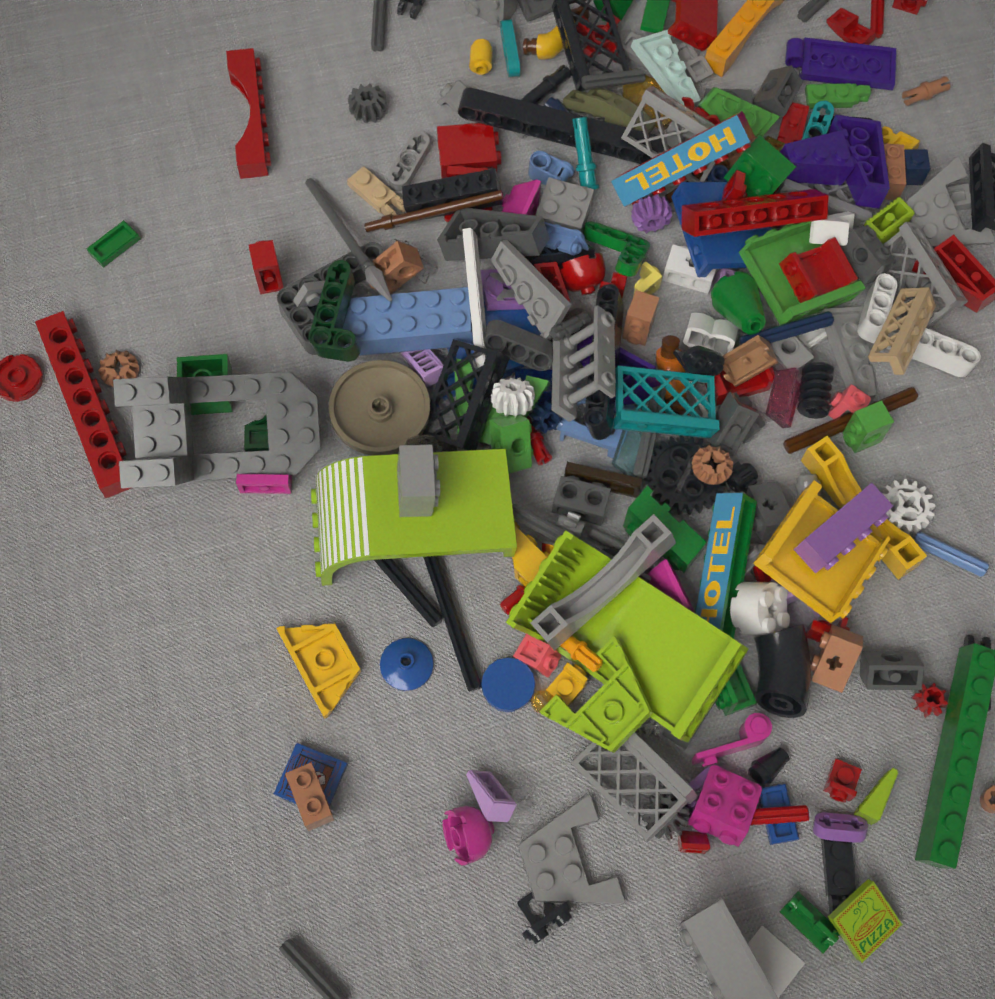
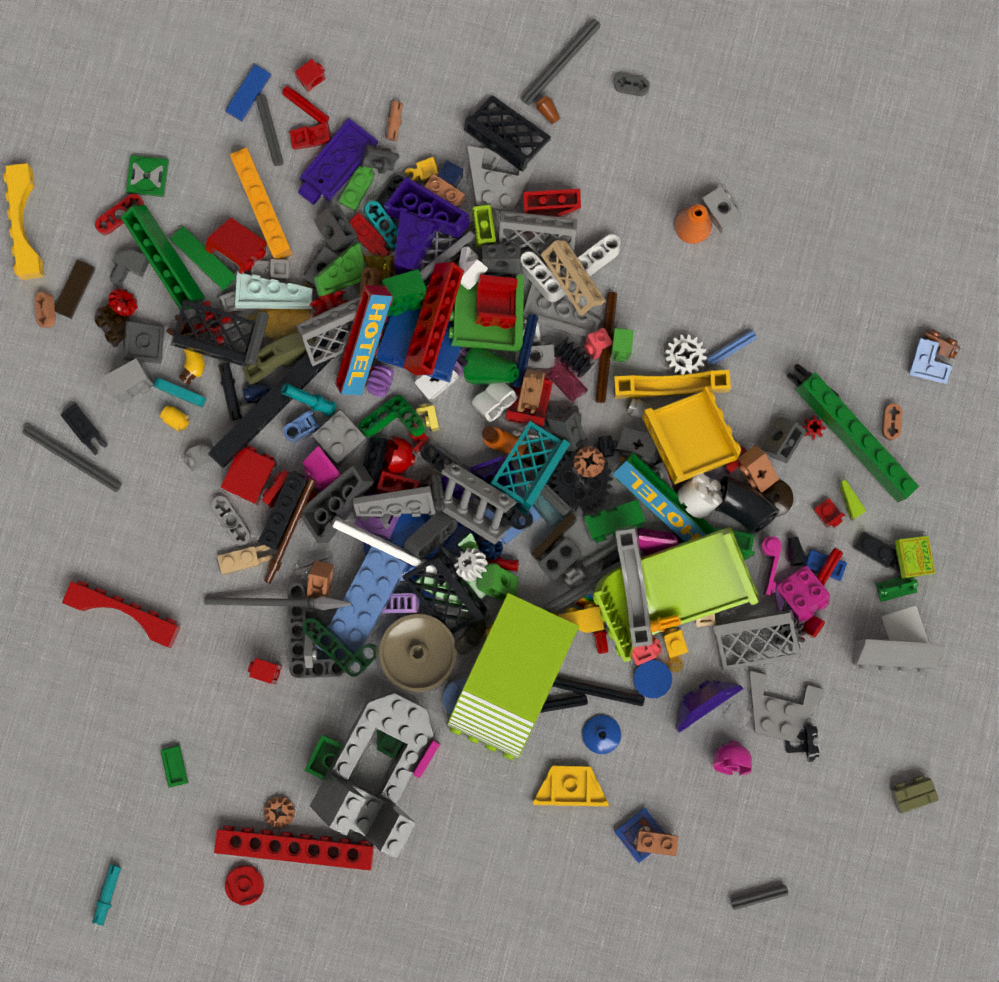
camera: 55 degrees left, 15 degrees up
(367, 102) = (159, 520): dark grey gear -> none
(417, 480) = (507, 666): light grey brick -> none
(491, 796) = (725, 732): lavender slope -> none
(518, 759) = (703, 701): none -> dark purple wedge
(570, 240) = (372, 451): medium blue hinge -> none
(613, 710) = (713, 629): lime wing -> none
(640, 318) = (457, 440): nougat brick -> none
(701, 360) = (516, 426): black bracket -> none
(735, 187) = (407, 320): red bracket -> none
(821, 718) = (785, 495): none -> dark brown dish
(840, 827) = (855, 534): medium lavender beam -> none
(843, 528) = (685, 412): medium lavender brick -> none
(878, 93) = (379, 159): none -> dark grey hips

